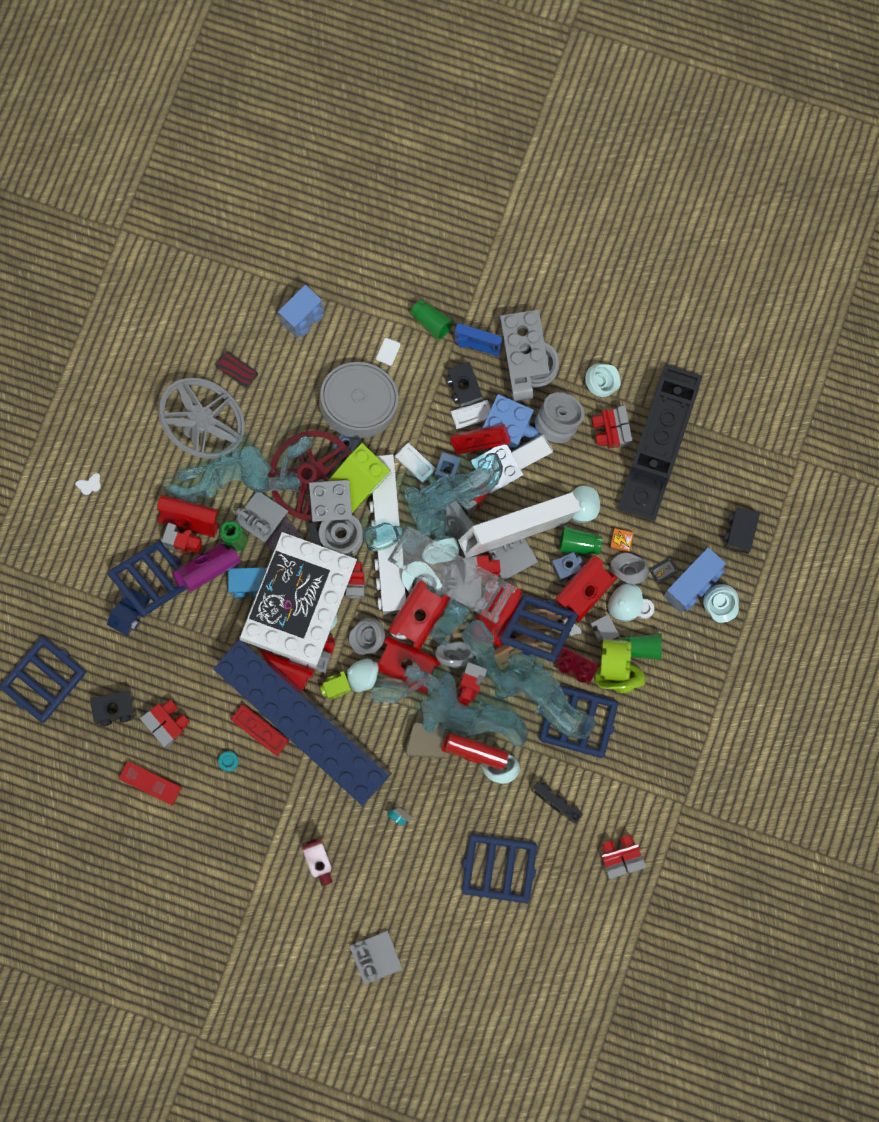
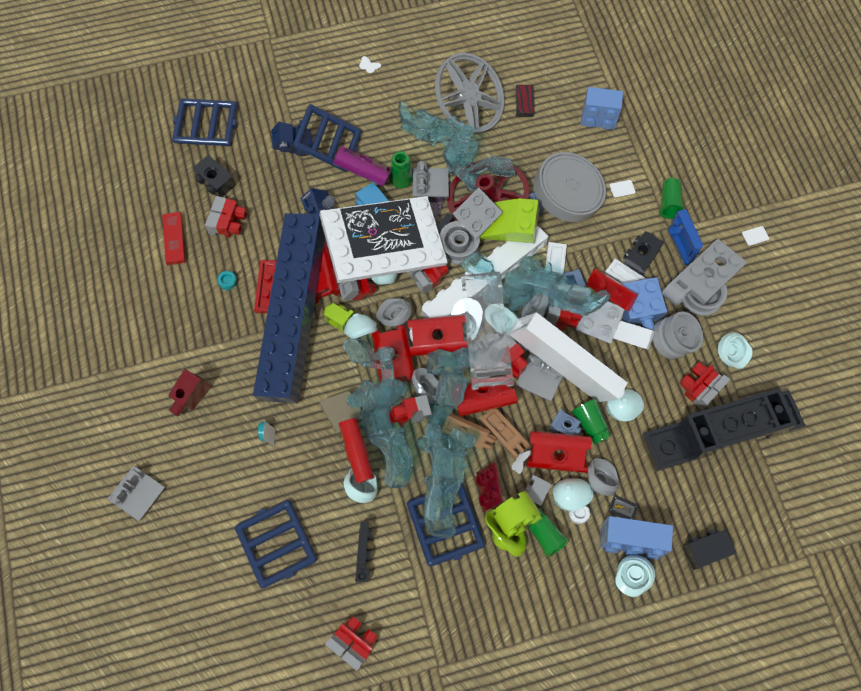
camera: 50 degrees right, 10 degrees down
(181, 542) = (370, 138): red hips -> none
(188, 516) = (391, 129): red piece -> none
(218, 632) = (317, 200): none -> dark blue piece
(514, 275) = (755, 235): none -> white sticker
(558, 643) = (494, 455): dark blue bar -> none
(621, 540) = (620, 455): tile -> none

